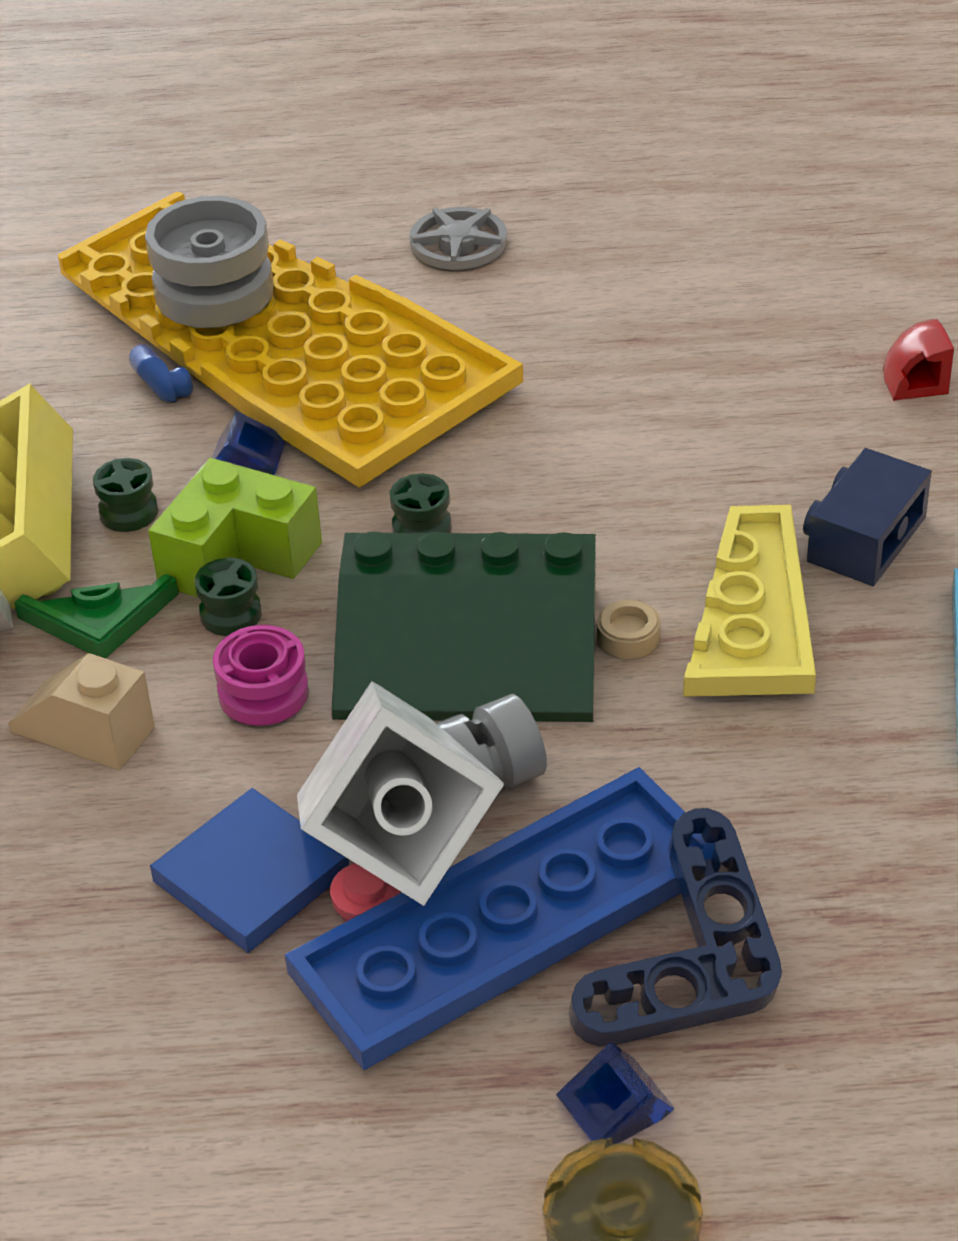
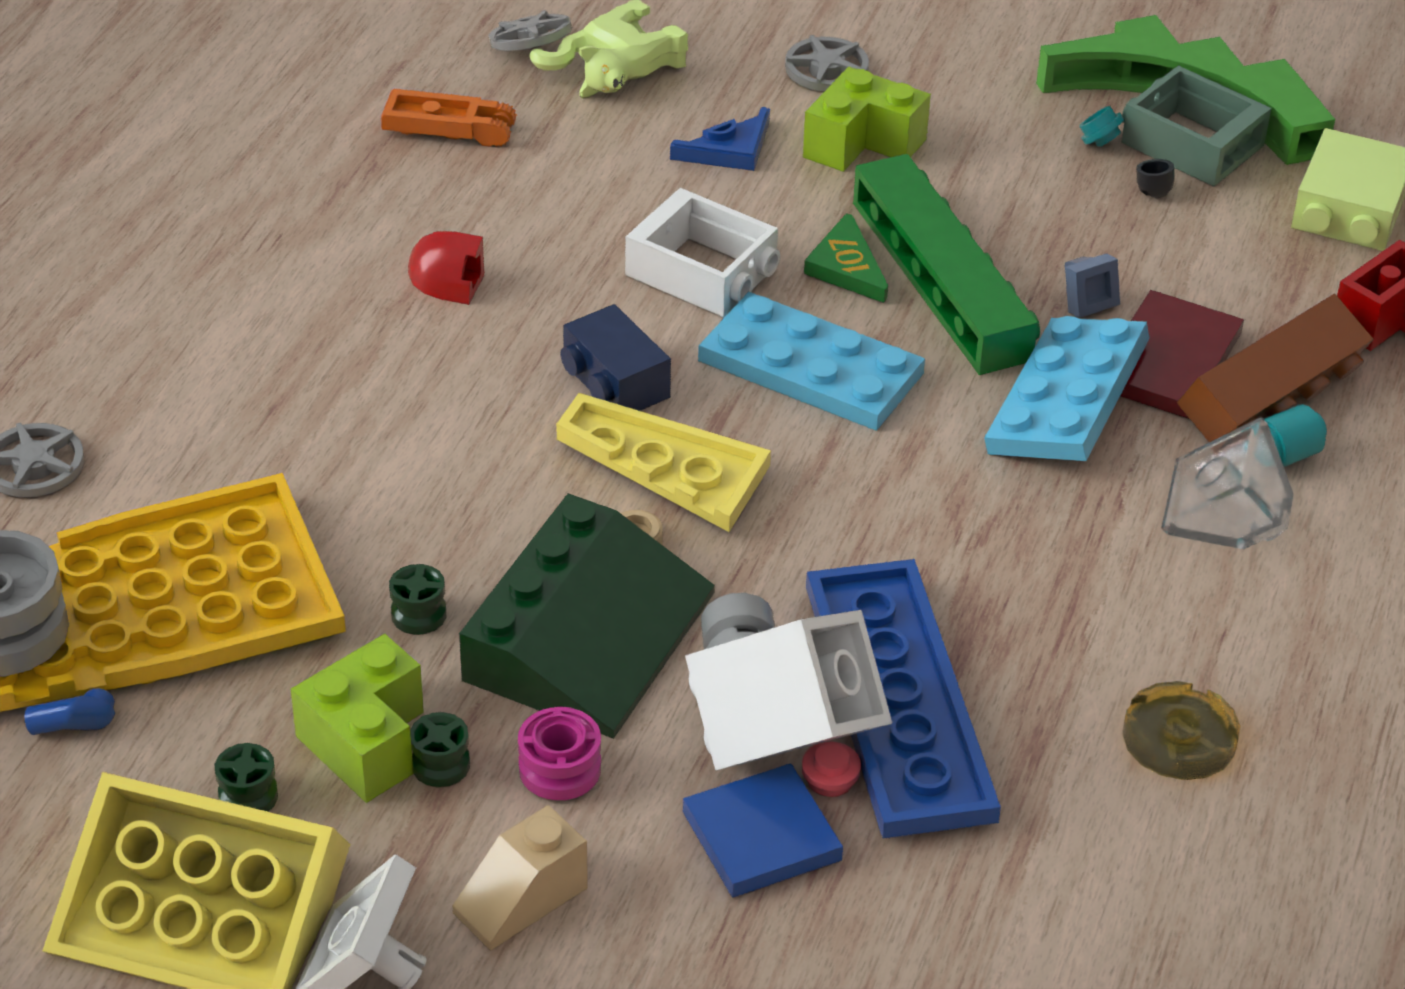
camera: 70 degrees left, 0 degrees up
(100, 615) = (388, 832): green tile -> none
(249, 444) = (230, 690): clear blue slope -> none
(614, 1097) = (1087, 700): clear blue slope -> none
(705, 966) = (1007, 606): dark blue beam -> none

